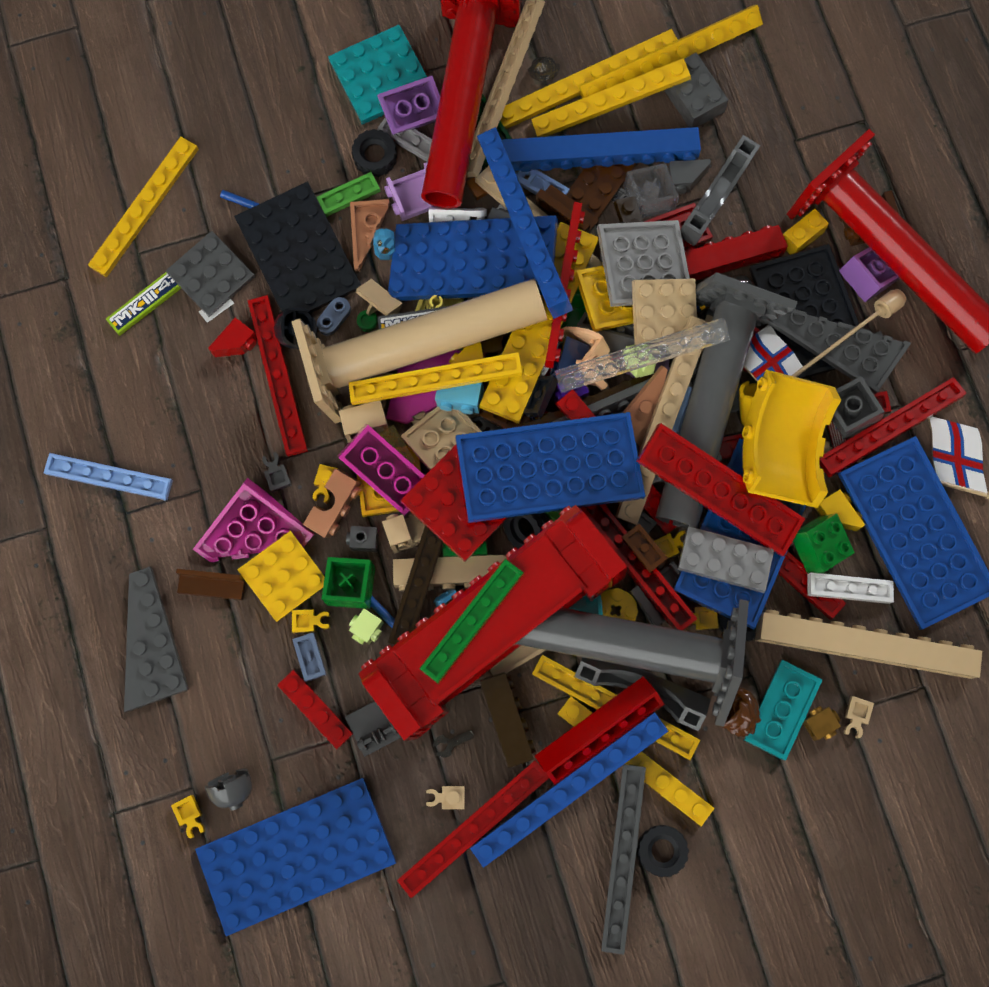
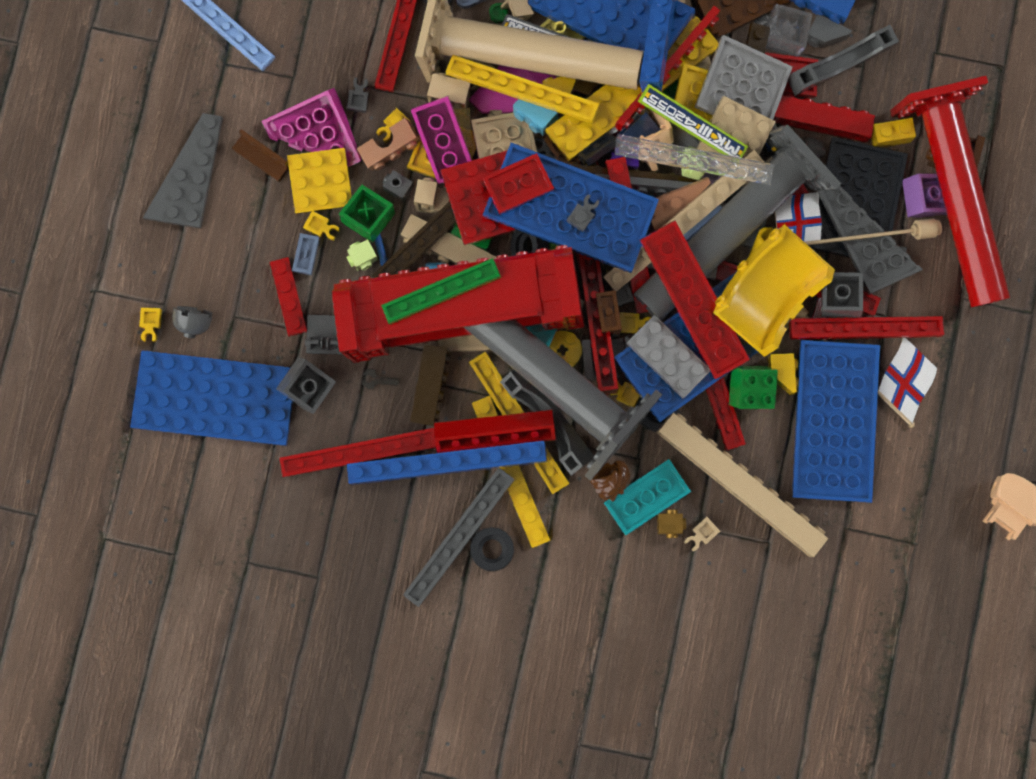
camera: 25 degrees right, 5 degrees up
(383, 790) = (306, 385): none -> dark grey brick
(451, 797) = (354, 420): tan plate -> none
(486, 471) = (518, 183): none -> red plate
(566, 468) = (581, 215): none -> dark grey plate
(618, 321) = (691, 122): none -> tile
(850, 588) = (755, 434): white plate -> none

